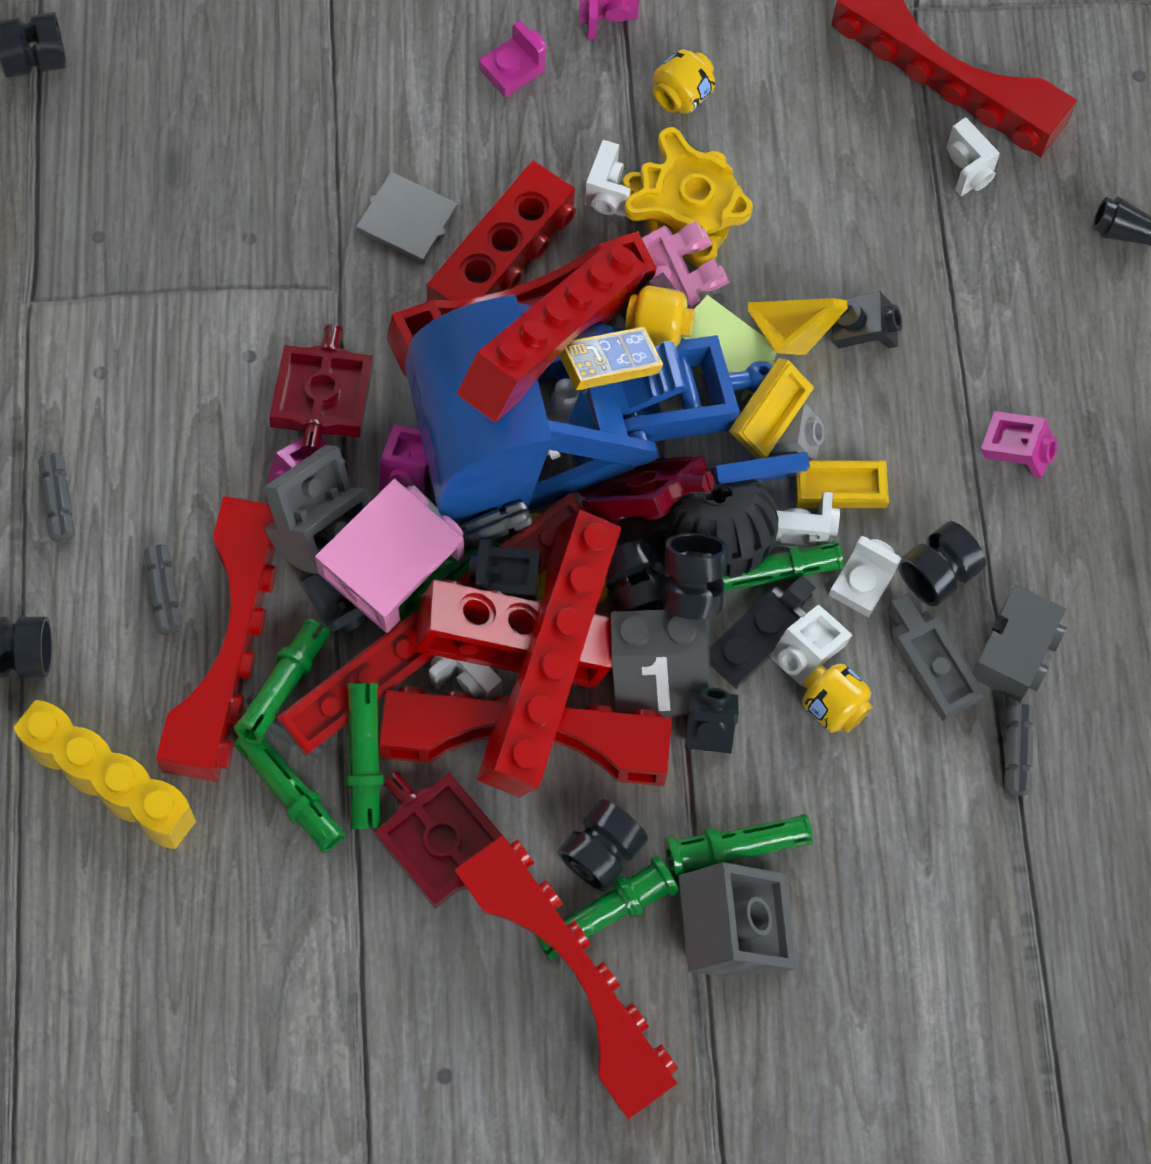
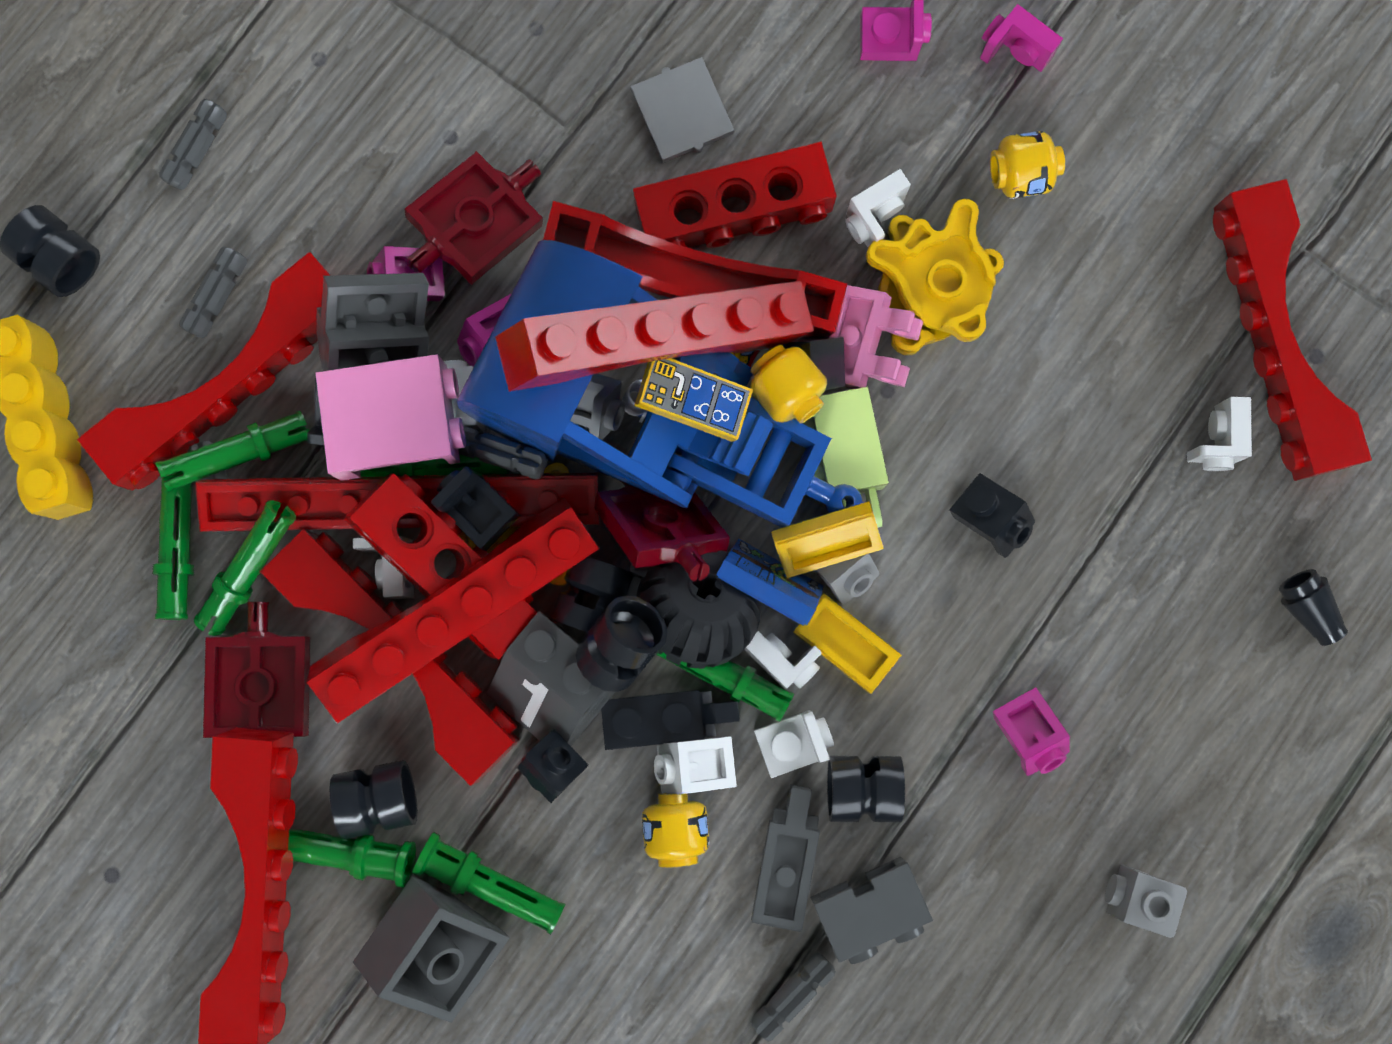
camera: 45 degrees right, 15 degrees up
(796, 324) = (923, 469): yellow slope -> none

